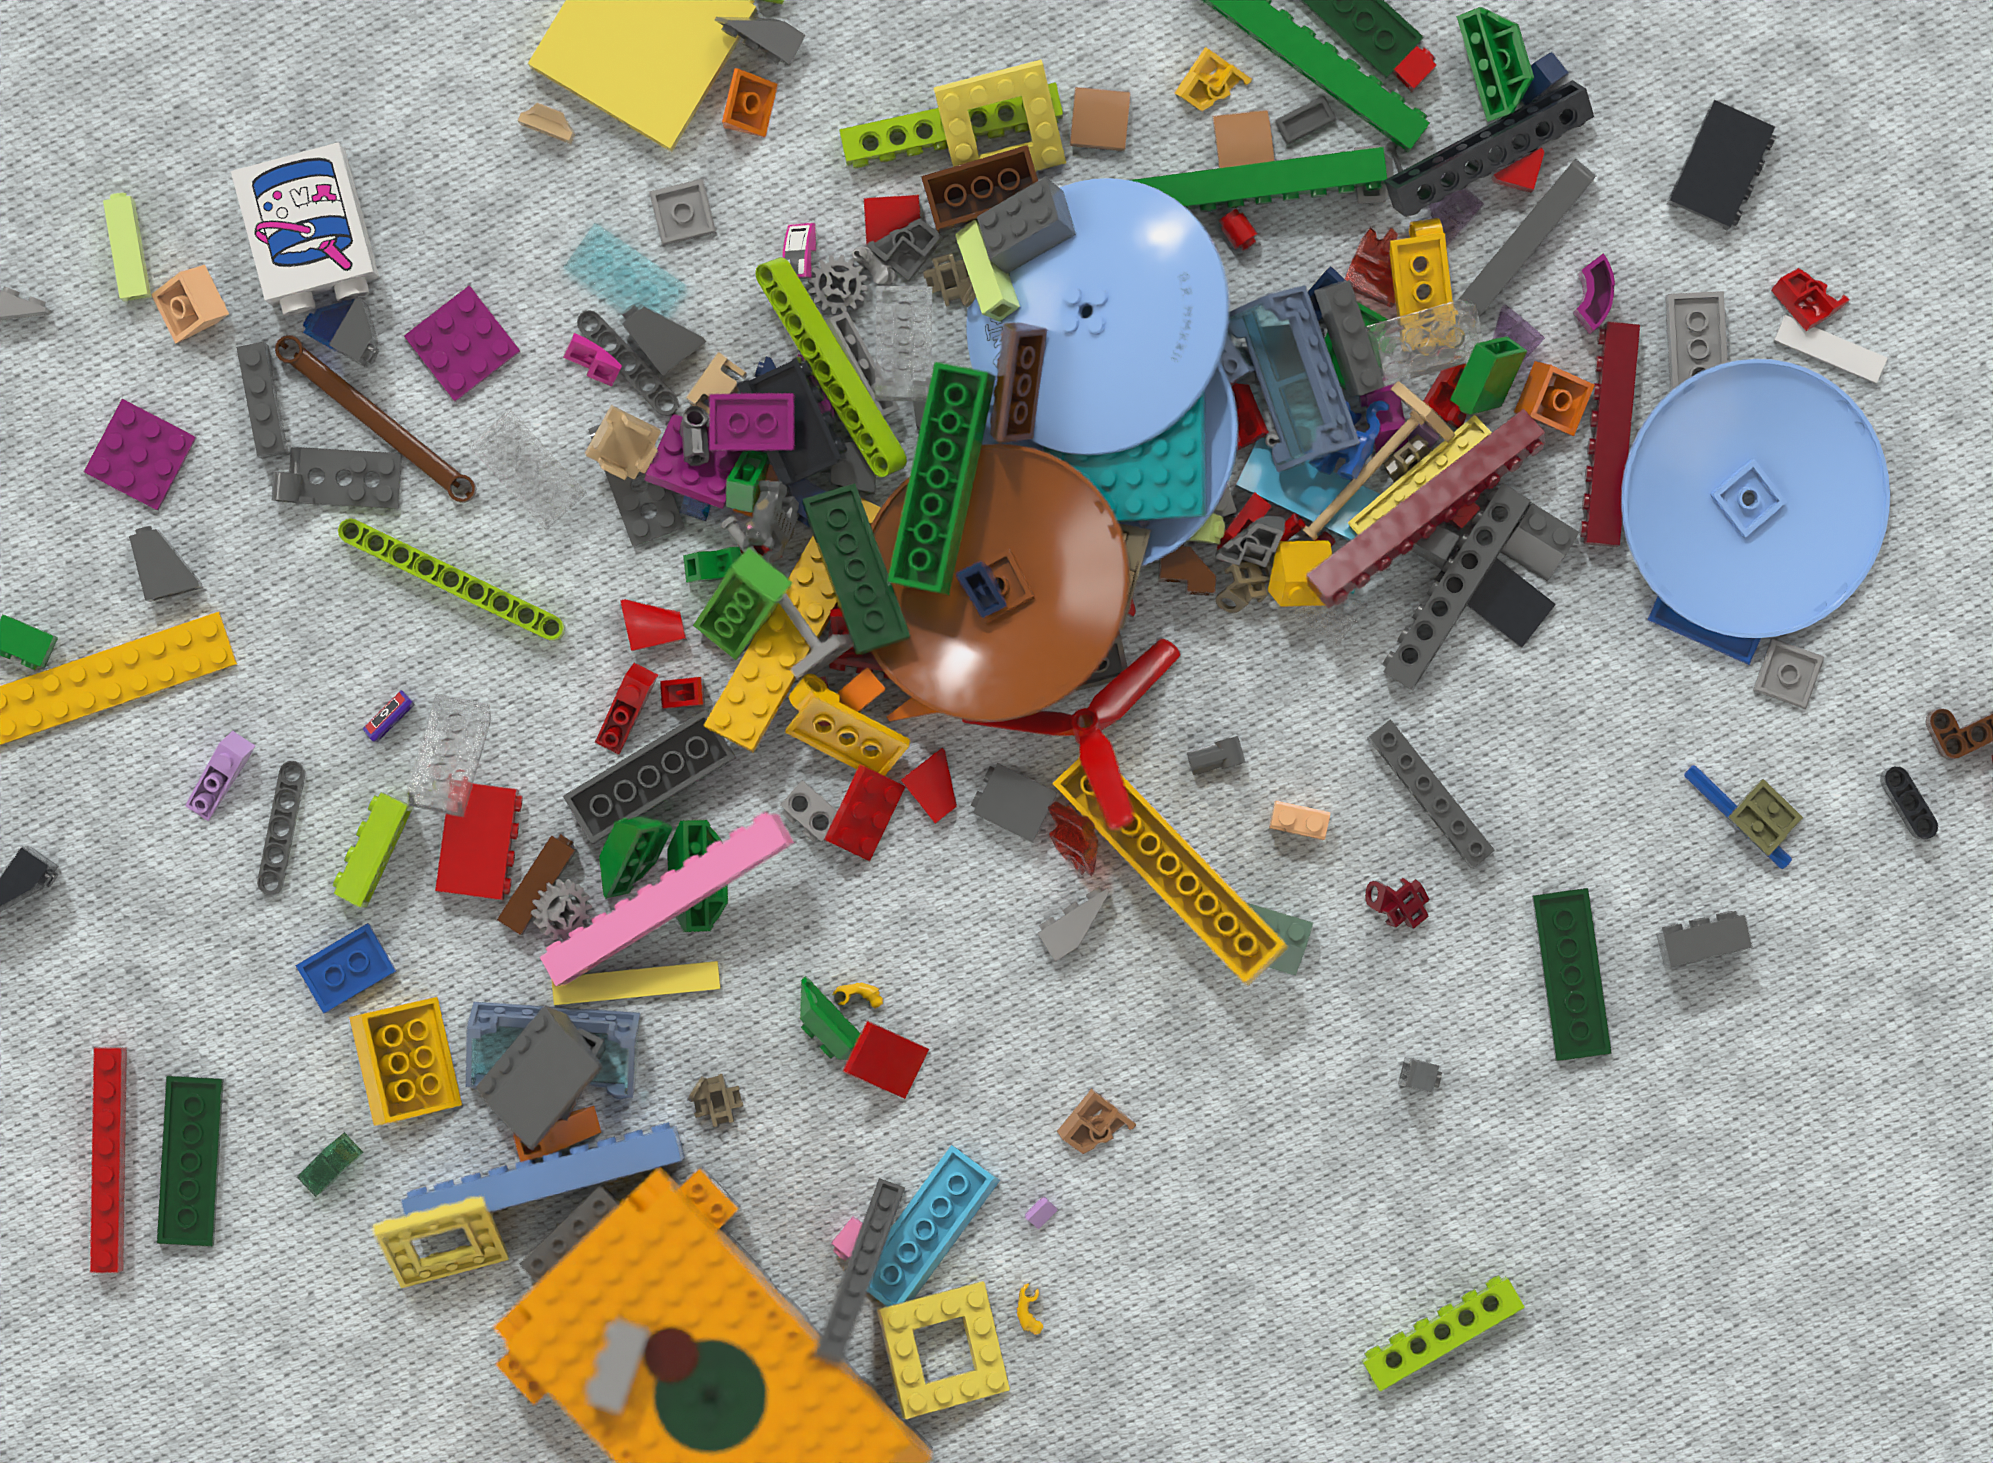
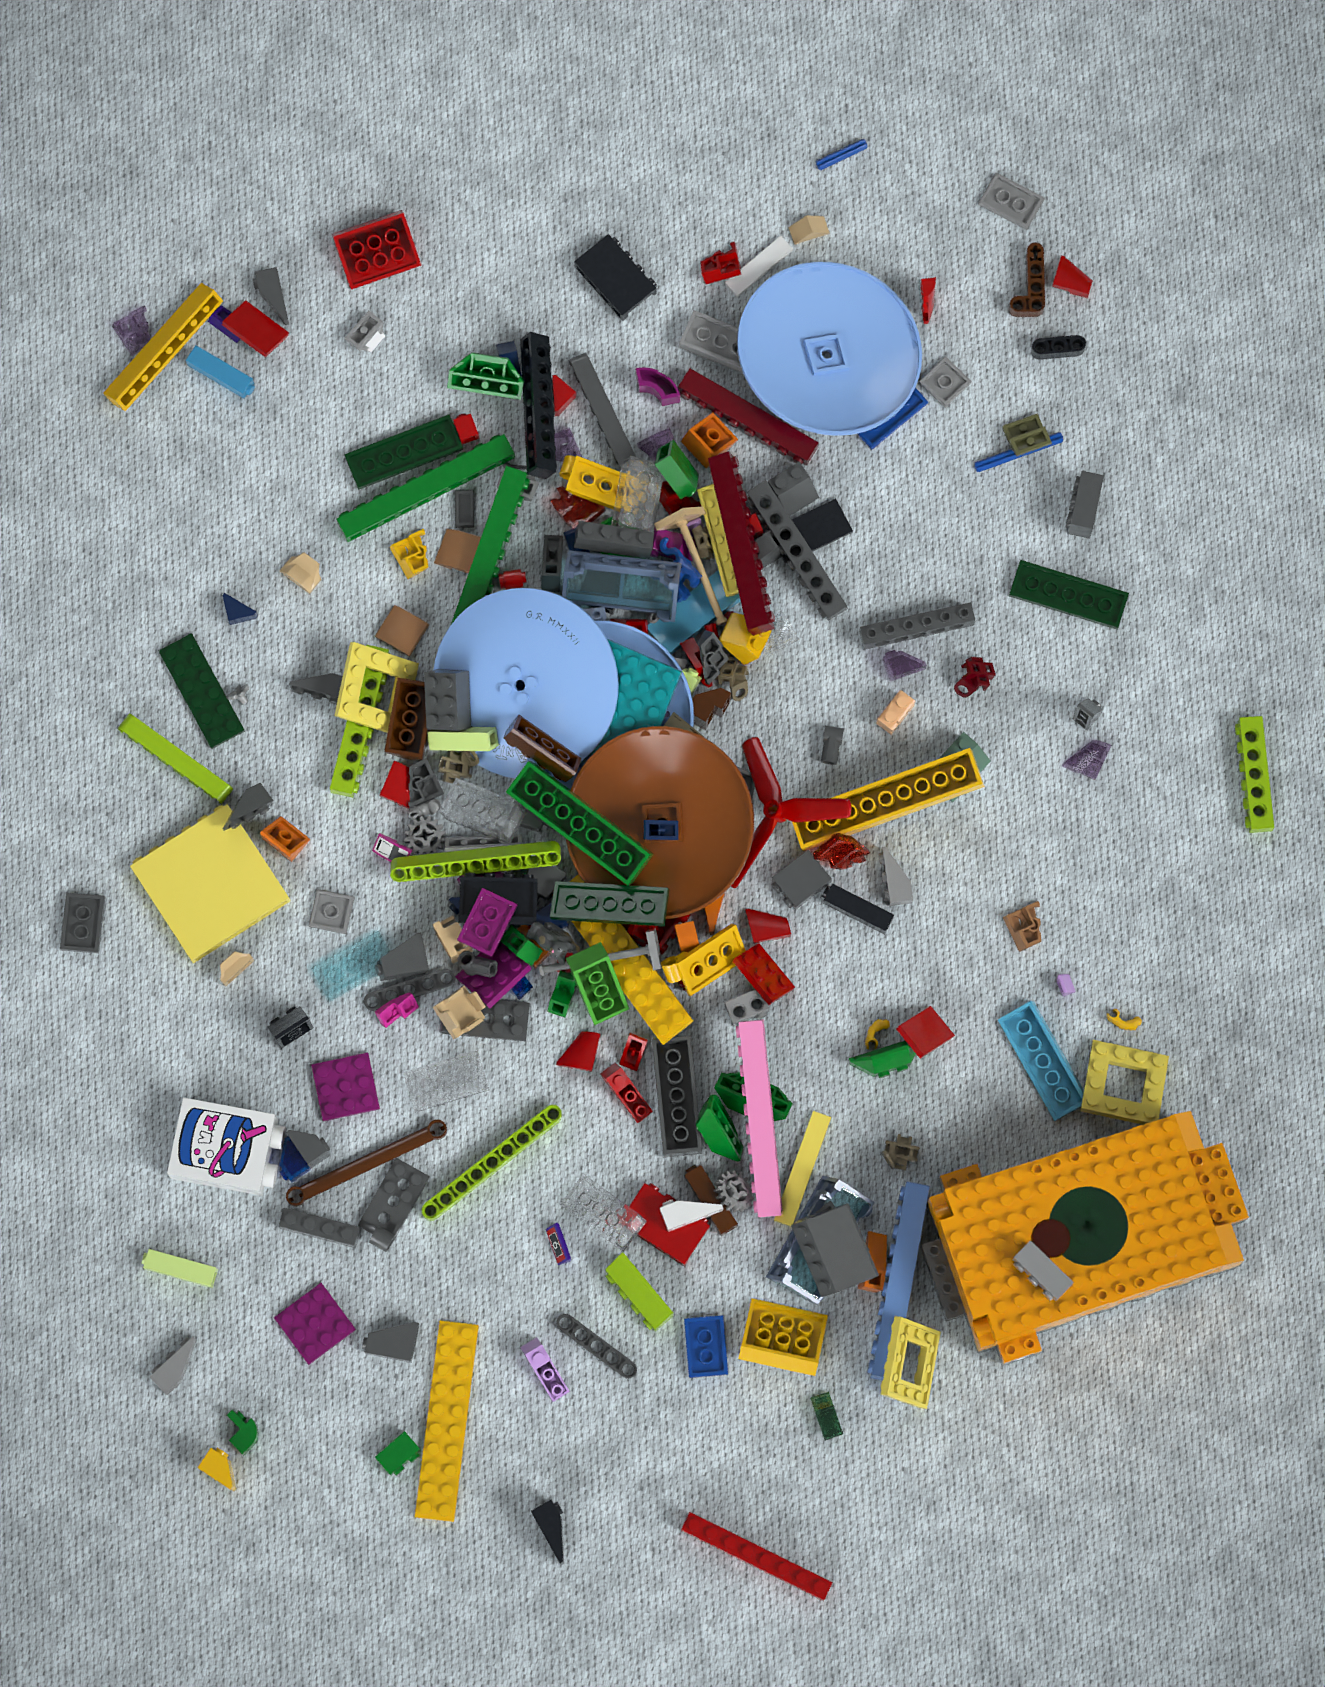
camera: 60 degrees left, 10 degrees down
(189, 303) = (235, 1245): light nougat slope -> none
(190, 1161) = (782, 1505): dark green plate -> none
(498, 859) = (683, 1213): none -> white slope
(501, 232) = (290, 1026): none -> black slope
(846, 1239) = (1028, 1108): bright pink brick -> none
(859, 1272) = (1052, 1104): dark grey tile -> none
(972, 49) = (319, 686): none -> dark grey slope
(1011, 893) = (857, 908): none -> black brick
(1285, 271) = (552, 563): none -> dark grey slope
(1358, 1104) = (1088, 759): none -> clear purple slope
(1368, 797) = (901, 664): none -> clear purple slope
(1891, 597) = (928, 296): none -> red slope
(1915, 391) = (808, 228): none -> tan slope

